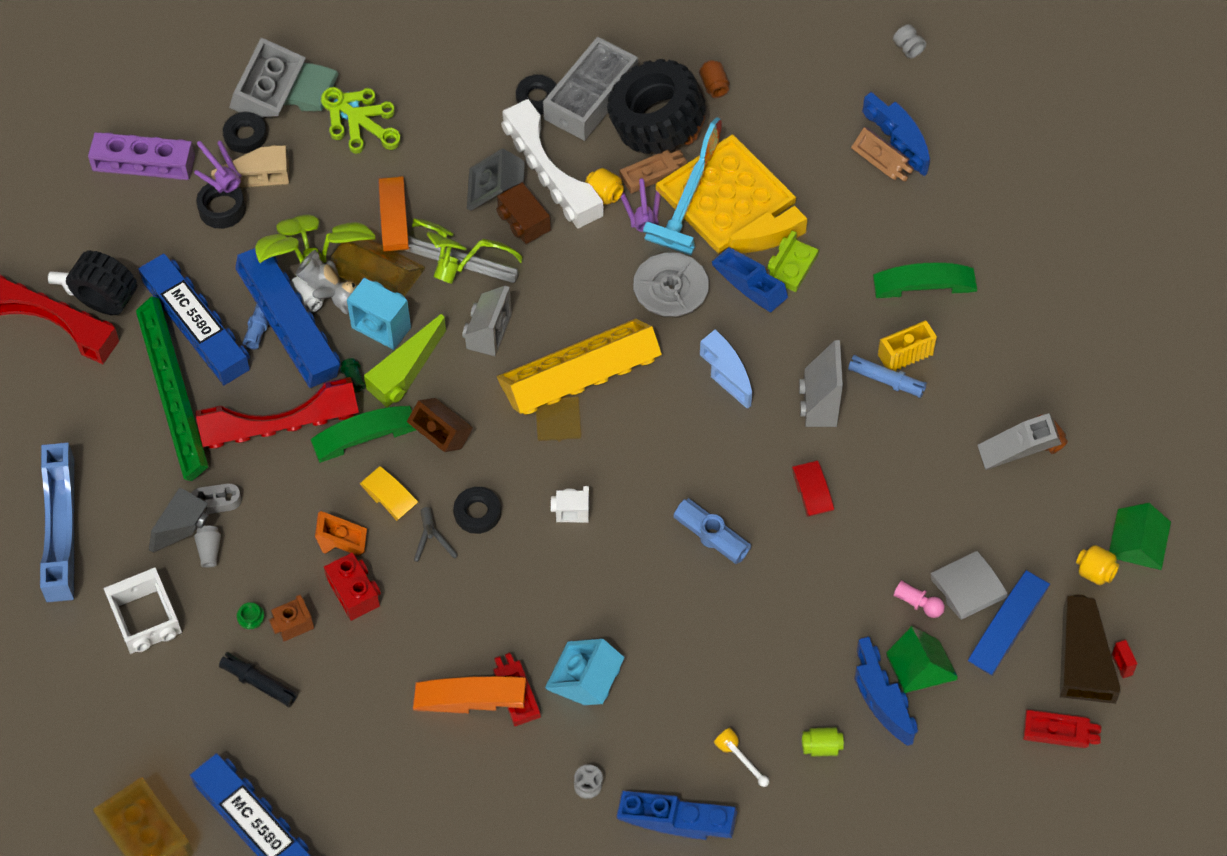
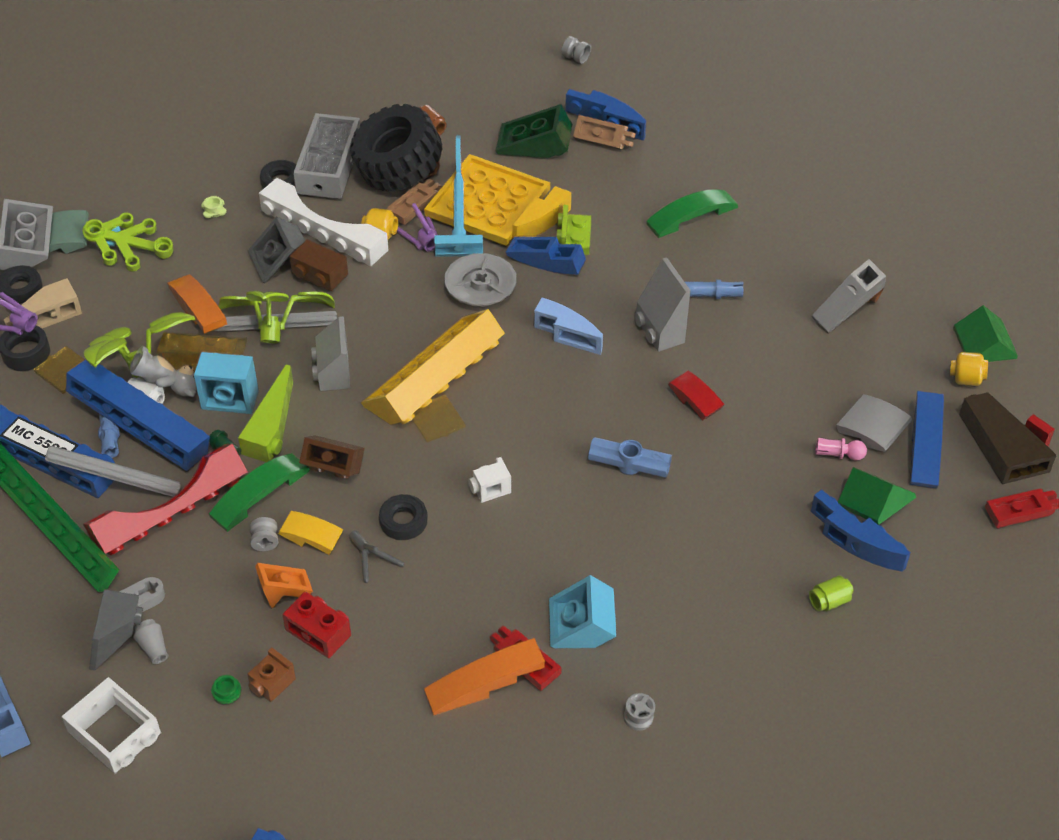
camera: 25 degrees left, 10 degrees down
(240, 368) = (112, 471): none -> light grey axle
(244, 235) = (56, 368): none -> clear yellow piece
(249, 674) = (260, 744): black pin -> none
(346, 480) = (263, 534): none -> light grey wheel
(460, 103) = (213, 207): none -> yellowish green plate
(676, 817) = (742, 710): blue slope -> none
(728, 742) = (748, 627): hinge -> none
(812, 133) = (536, 134): none -> dark green slope
(907, 346) = (711, 258): yellow brick -> none

